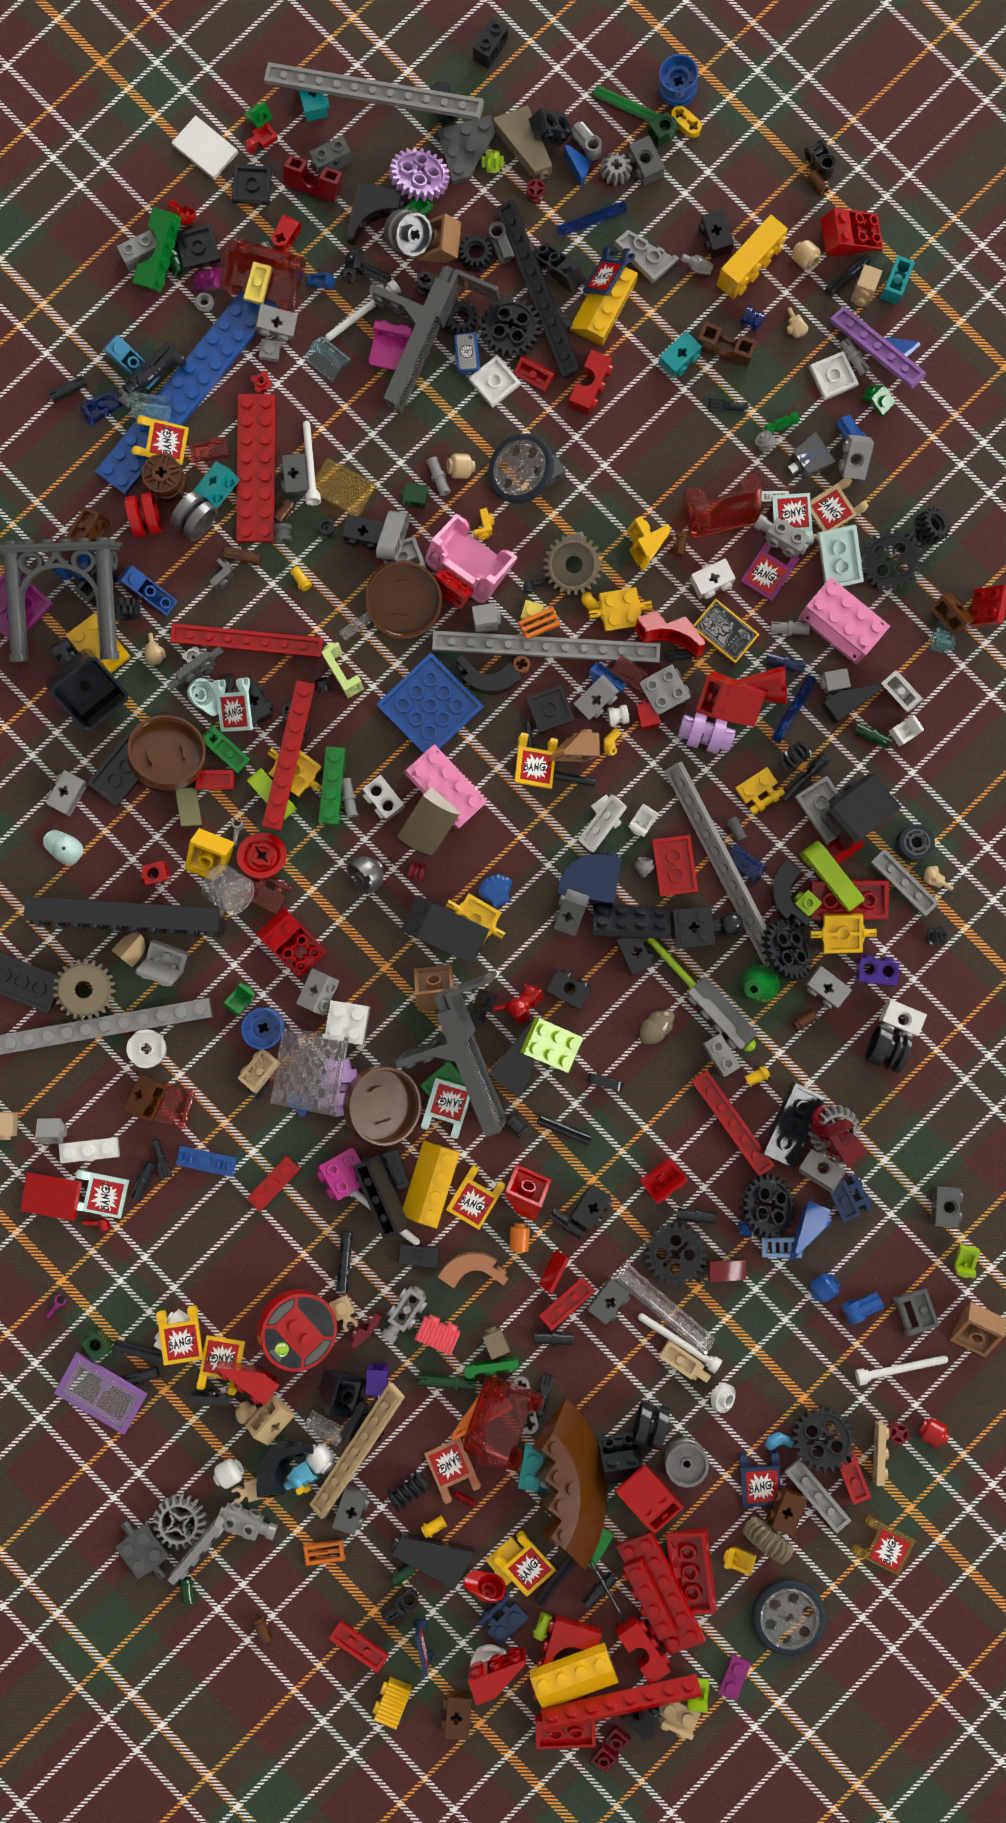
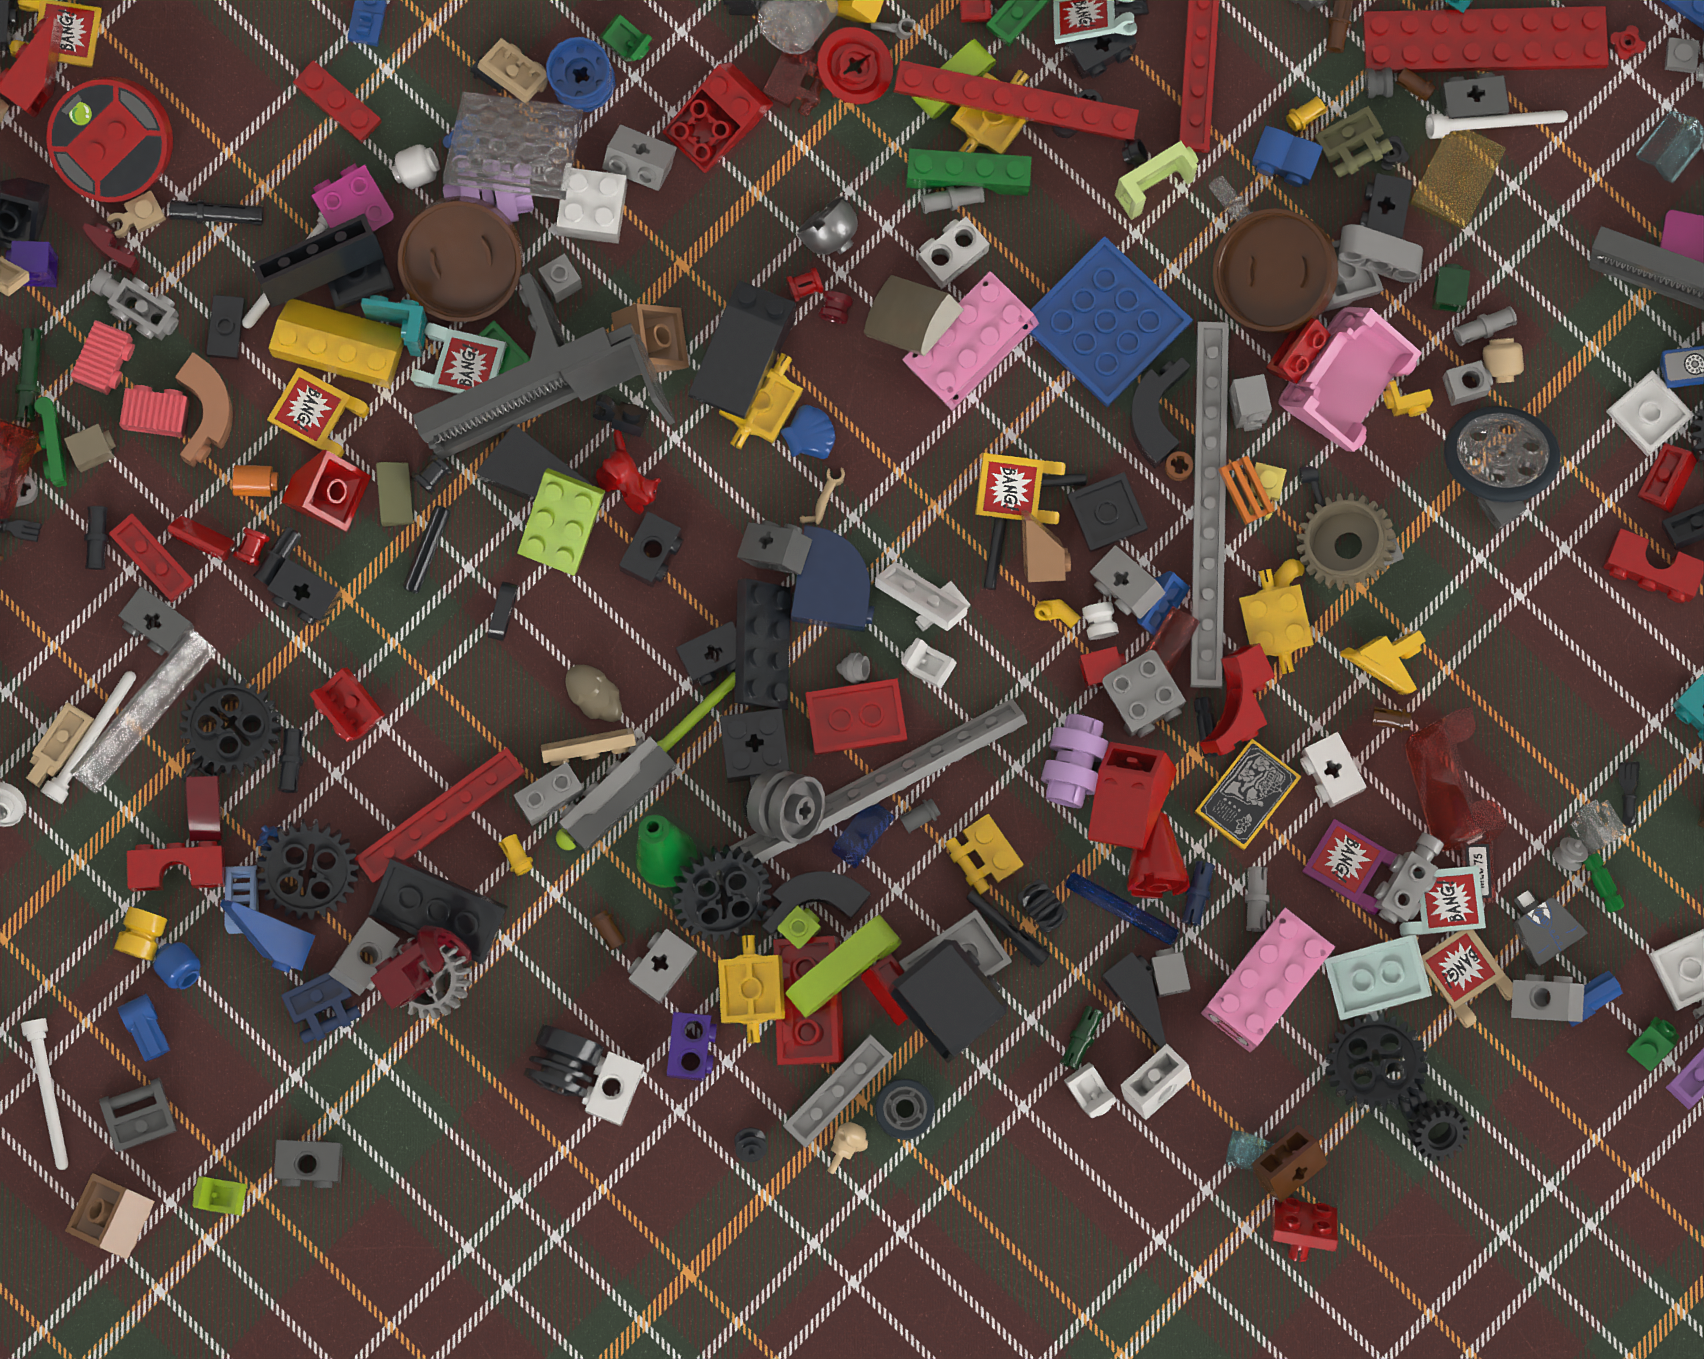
camera: 85 degrees right, 5 degrees down
(315, 551) = (1349, 135): none -> olive plate
(318, 1133) = (415, 166): none -> white head
(328, 591) = (1286, 156): none -> blue brick
(394, 1043) = (560, 278): none -> light grey brick
(401, 890) = (815, 286): none -> red bush
(427, 1136) = (405, 313): none -> teal bracket
(474, 496) = (1458, 392): none -> light grey brick
(474, 1301) = (154, 411): none -> coral brick
(528, 1149) = (394, 493): none -> olive slope
(537, 882) = (824, 498): none -> tan piece
(561, 1240) = (251, 547): none -> red bush
(691, 1030) = (588, 746): none -> tan plate
(736, 908) = (786, 805): none -> flat silver wheel
(751, 422) = (1597, 825): none -> clear brick
(762, 1270) = (148, 865): none -> red arch
(805, 1310) = (140, 934): none -> yellow wheel

